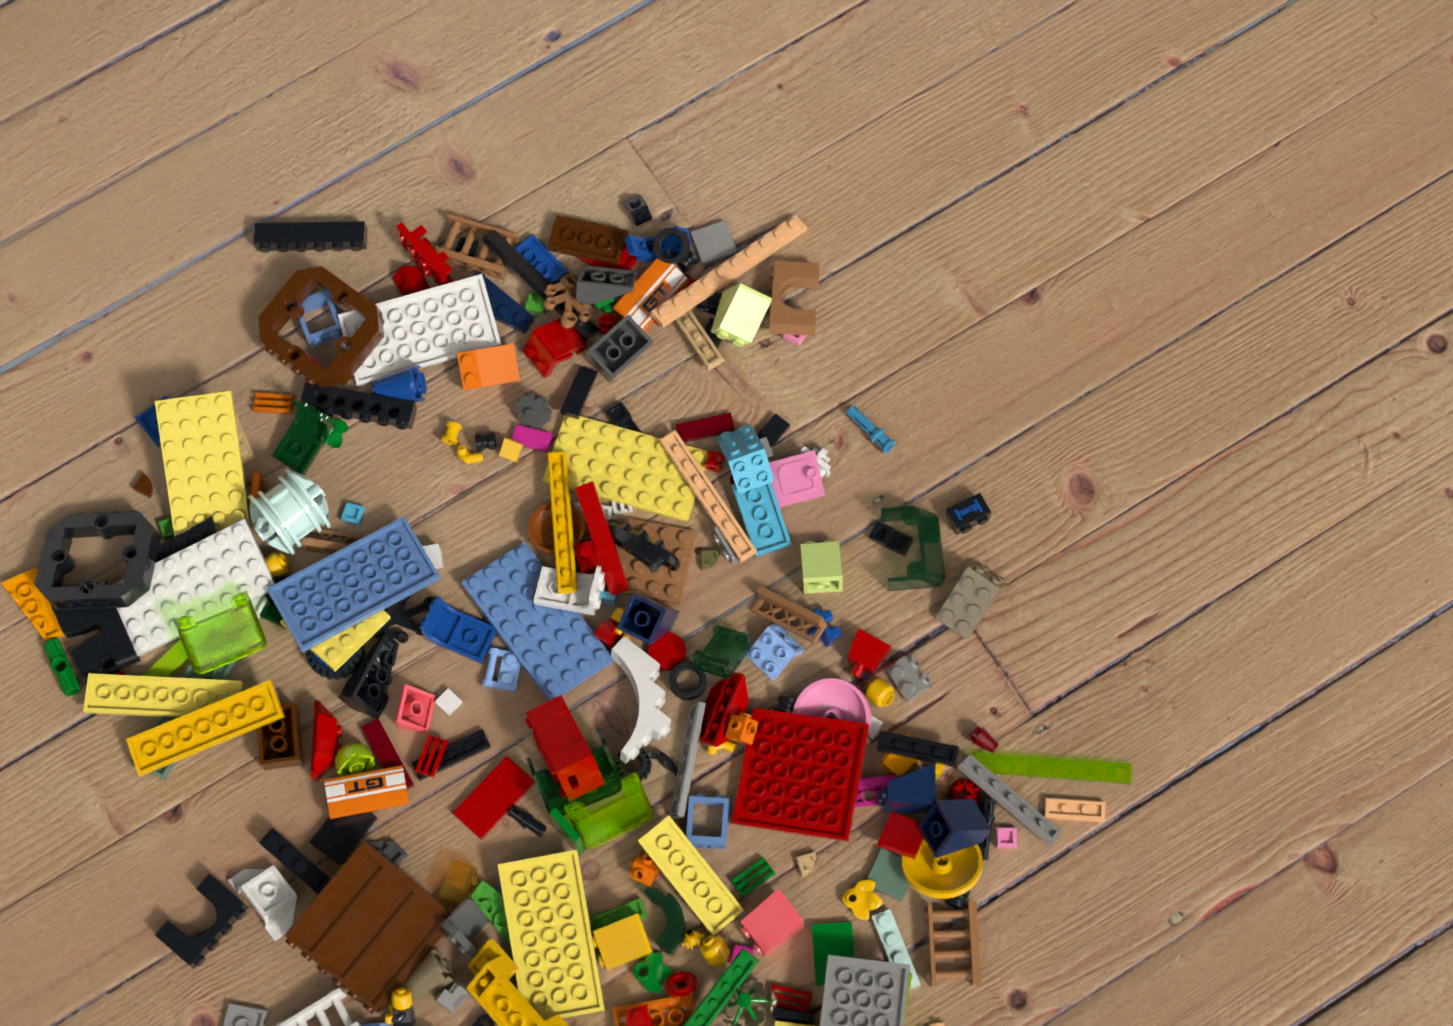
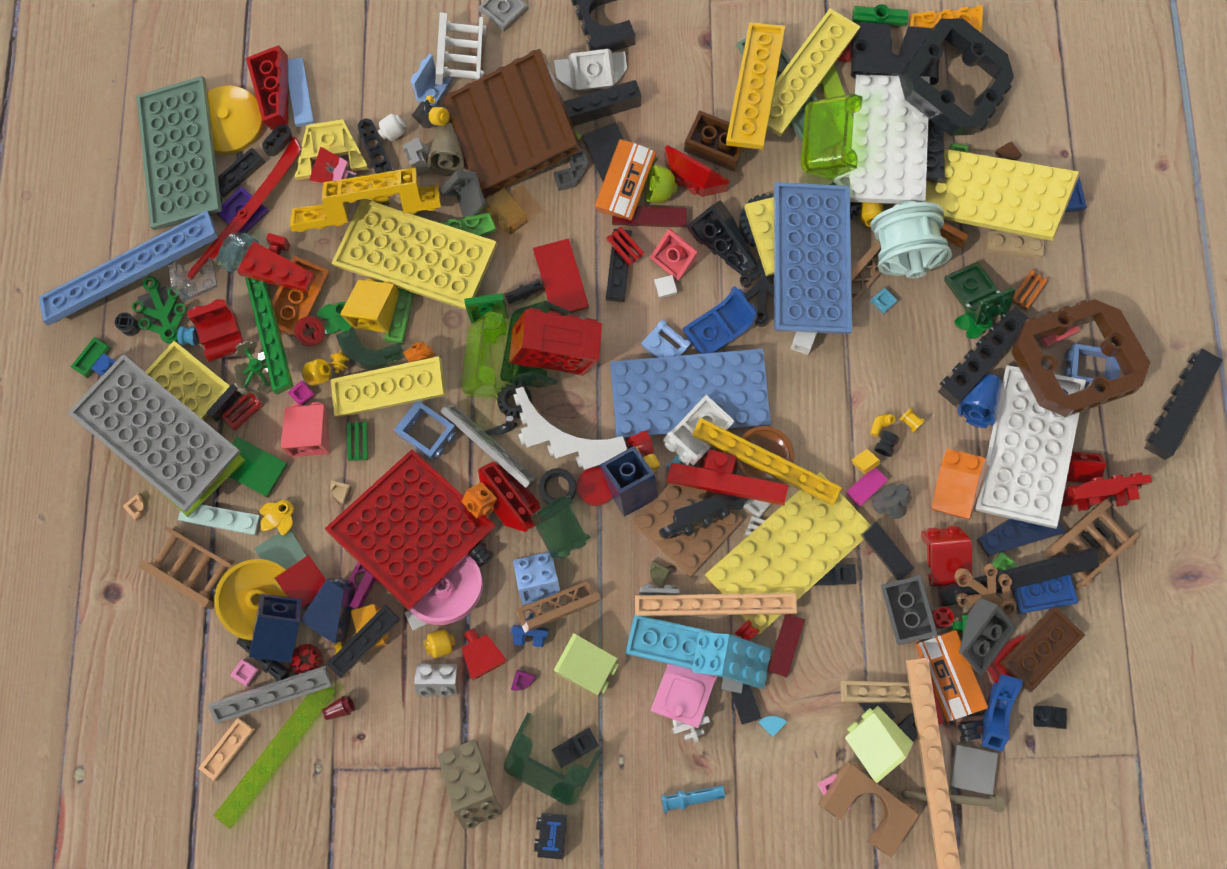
camera: 115 degrees right, 5 degrees up
(657, 245) = (991, 706): black tyre -> none
(729, 215) = (994, 802): none -> dark tan piece
(775, 403) = (772, 724): none -> medium azure tile
(865, 611) = (522, 680): none -> magenta tile

